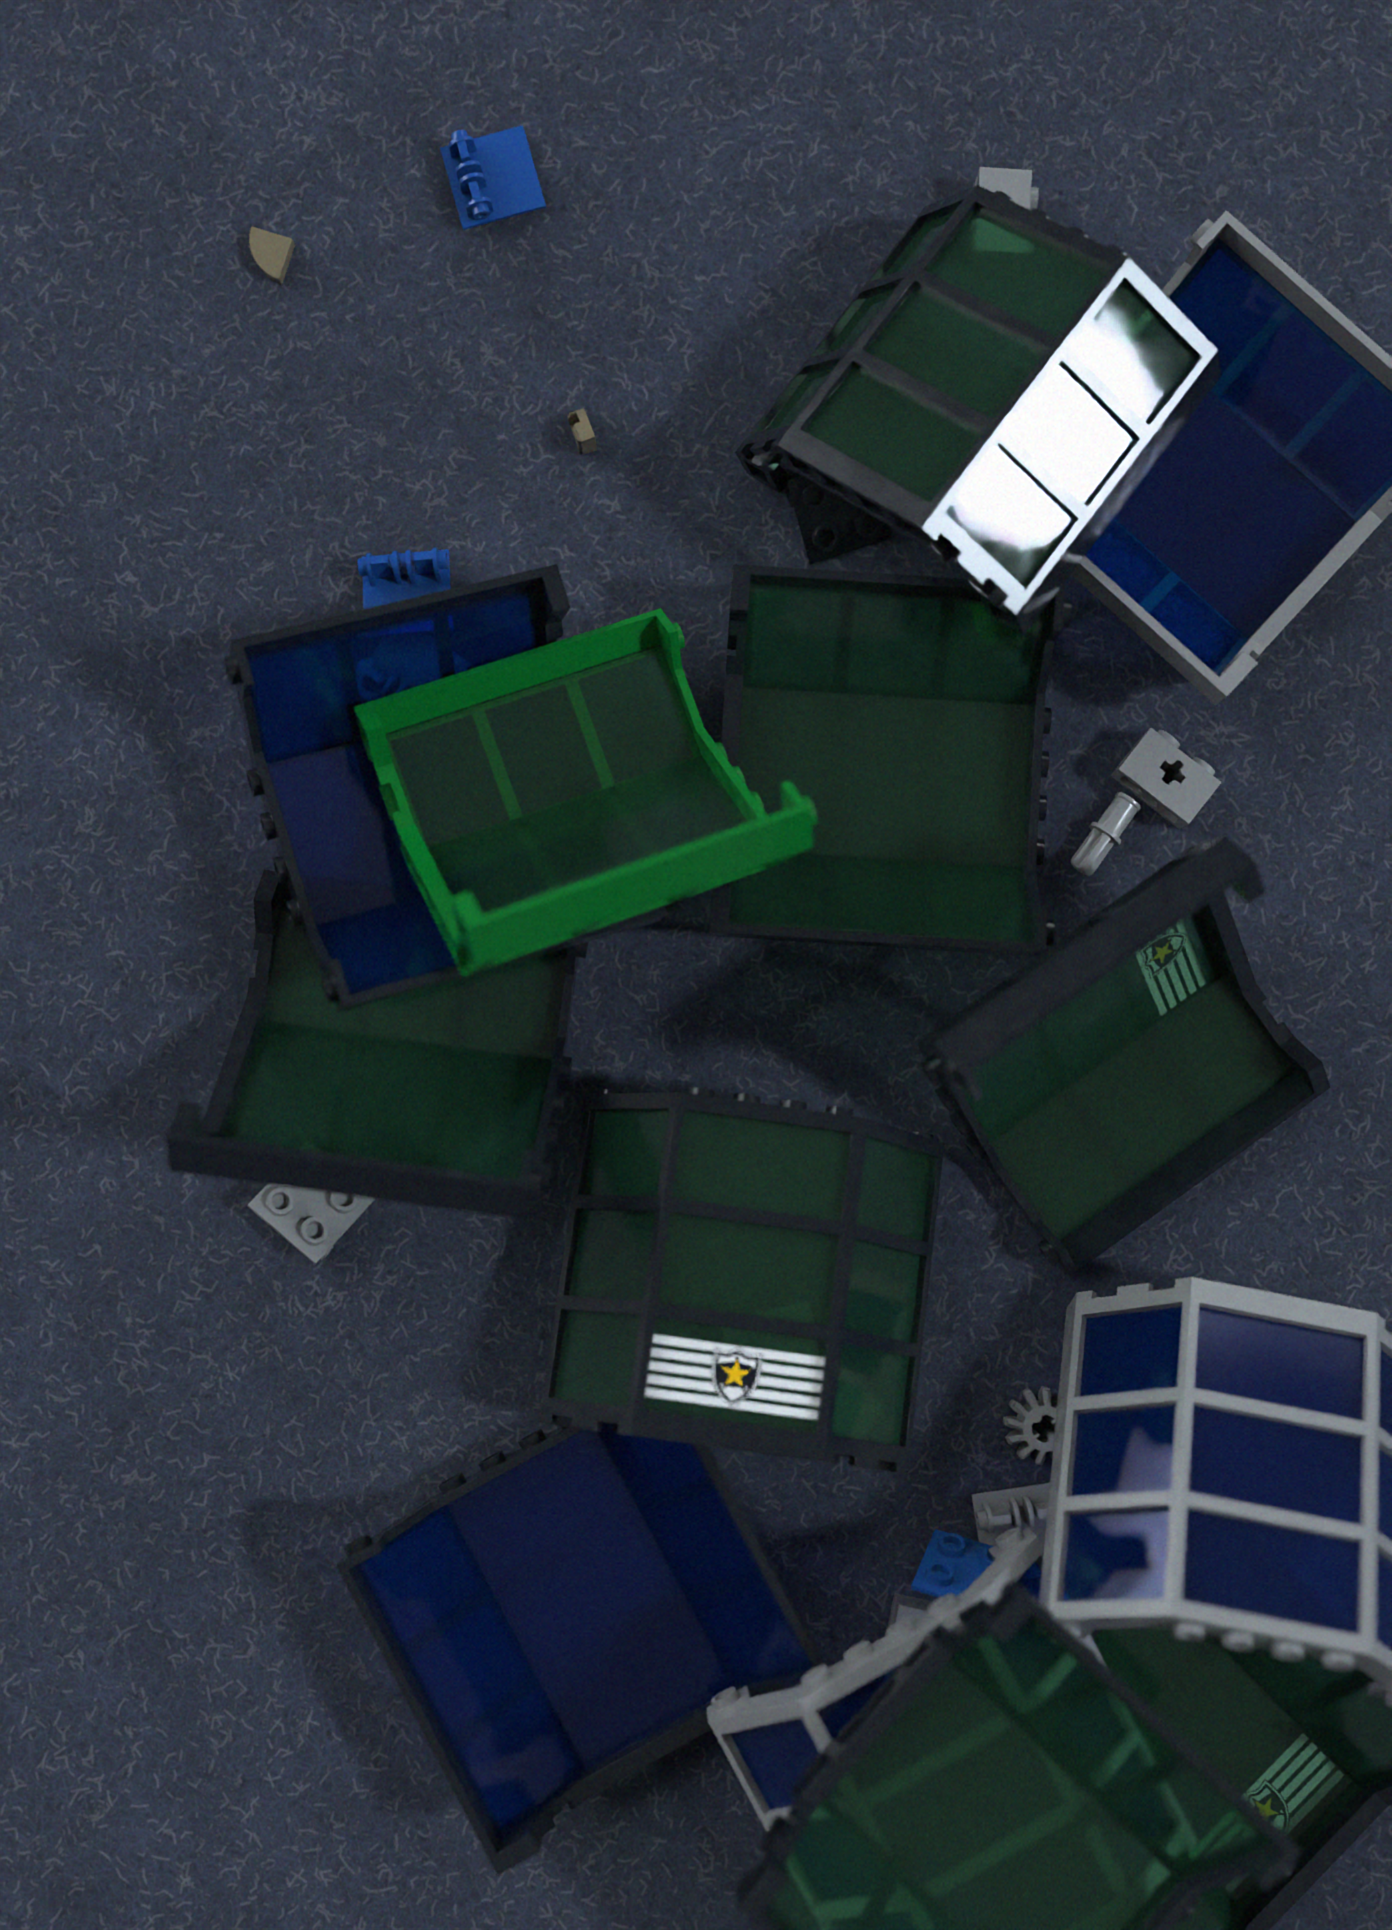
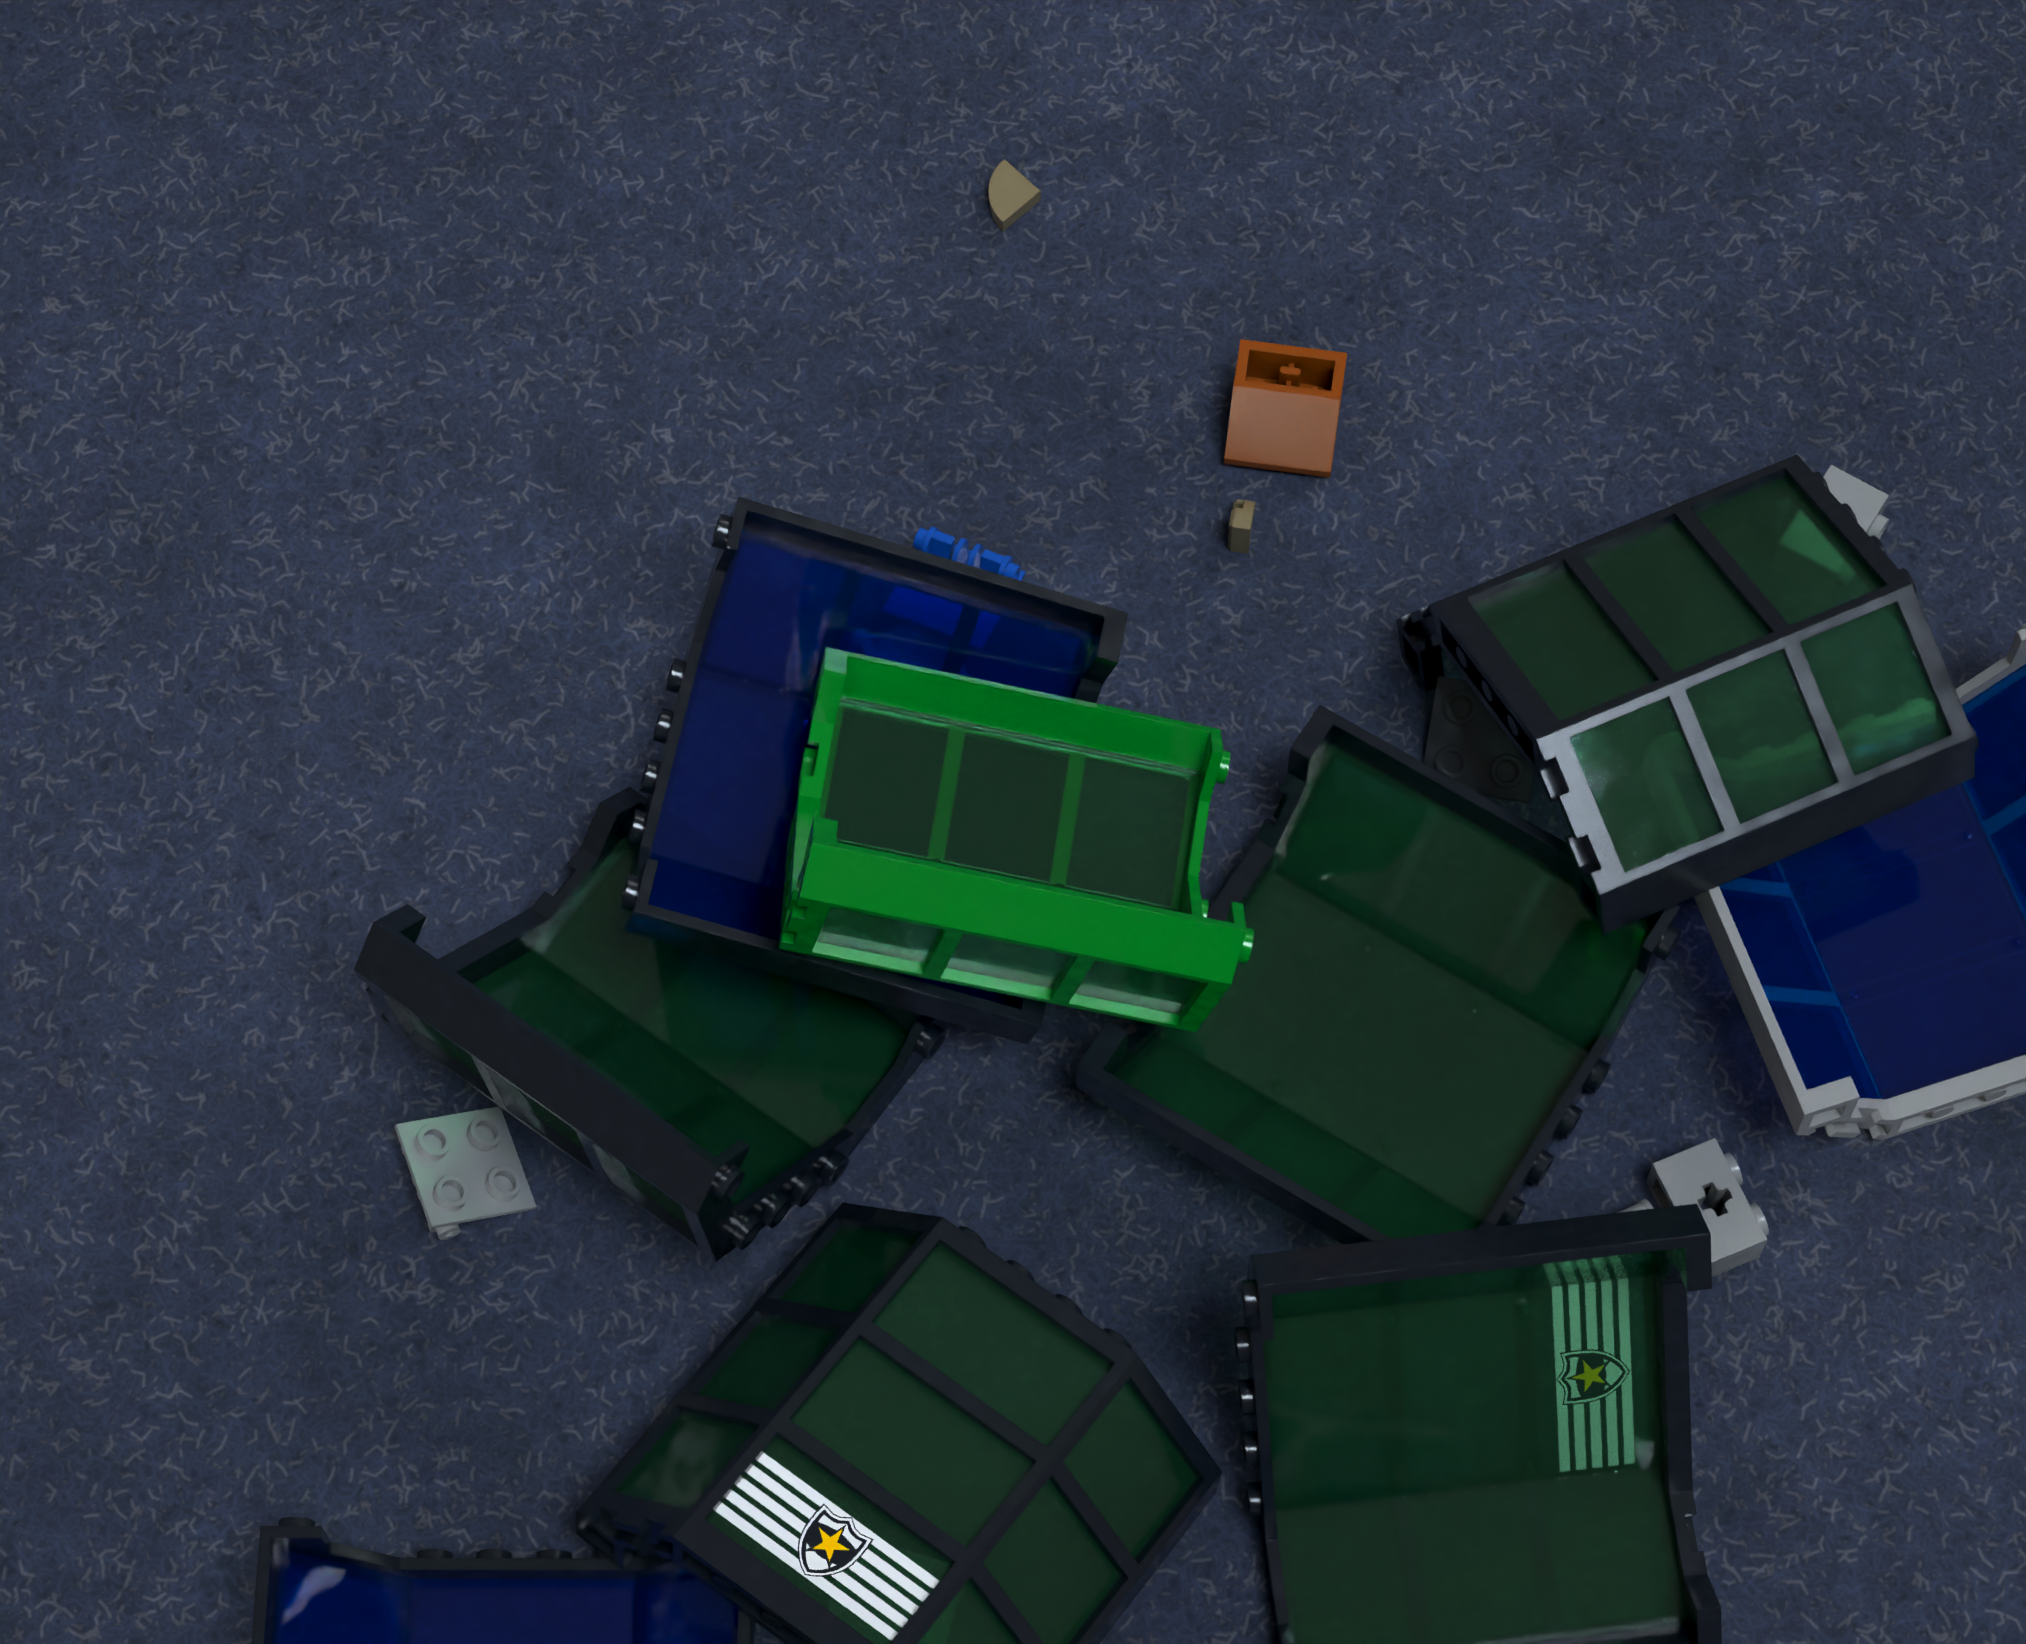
camera: 30 degrees right, 20 degrees down
(492, 176) = (1290, 231): blue hinge -> none
(567, 324) = (1285, 408): none -> dark orange slope

